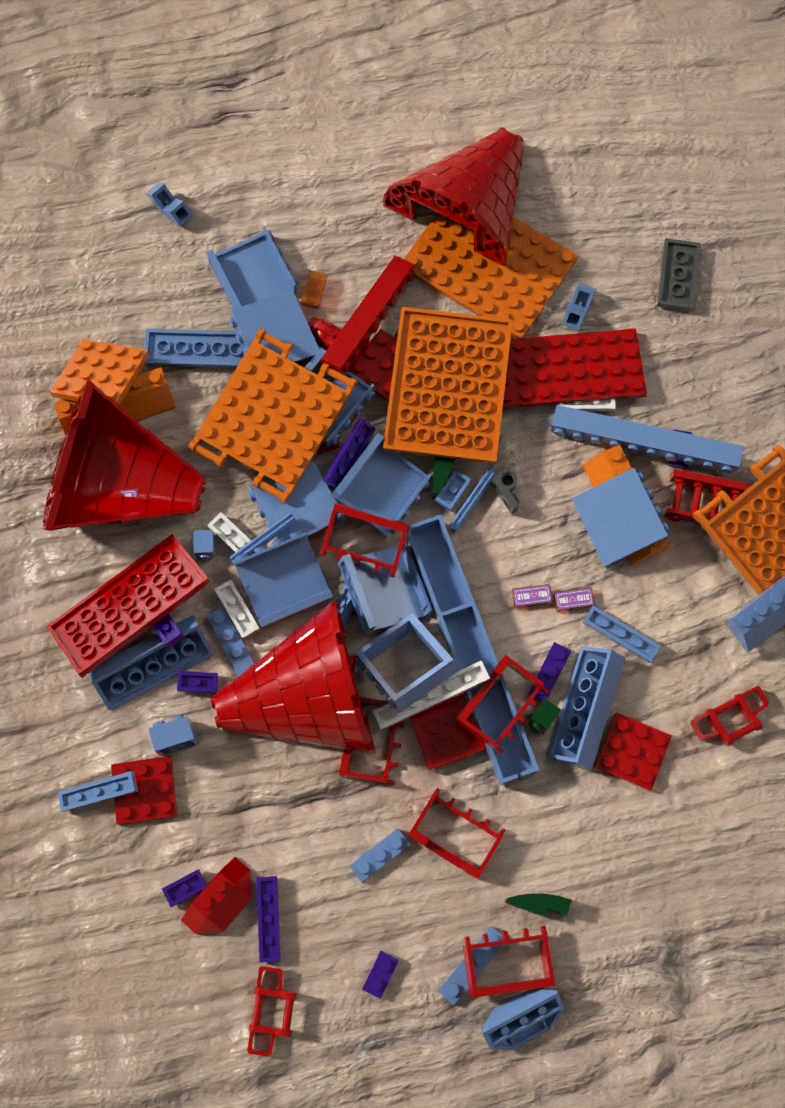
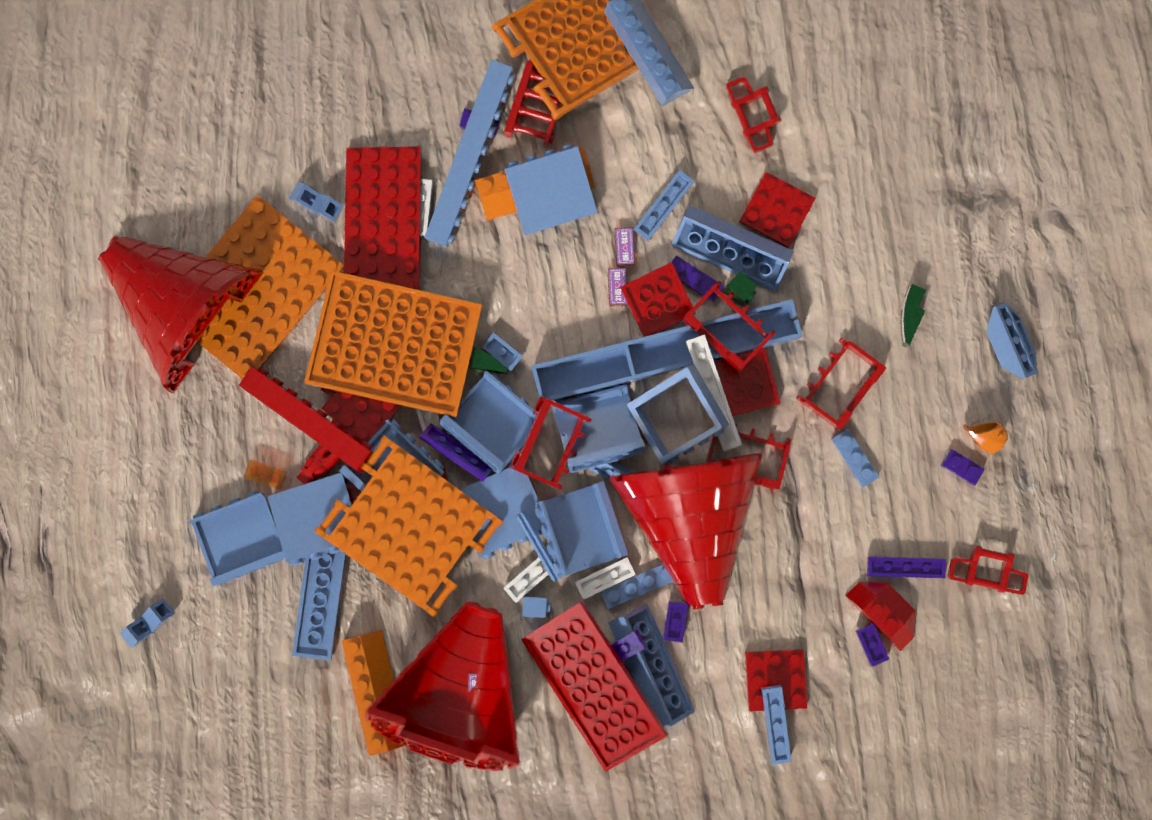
camera: 85 degrees left, 10 degrees up
(105, 364) = (338, 704): orange plate -> none
(173, 735) = (729, 647): medium blue brick -> none
(416, 998) = (988, 435): none -> orange helmet
(457, 982) = (960, 382): medium blue plate -> none
(472, 500) = (513, 333): medium blue axle -> none
(504, 491) = (519, 295): dark grey plate -> none
(523, 633) = (657, 300): none -> red plate
(547, 981) = (982, 328): red hinge -> none
(679, 274) = (290, 95): dark grey plate -> none

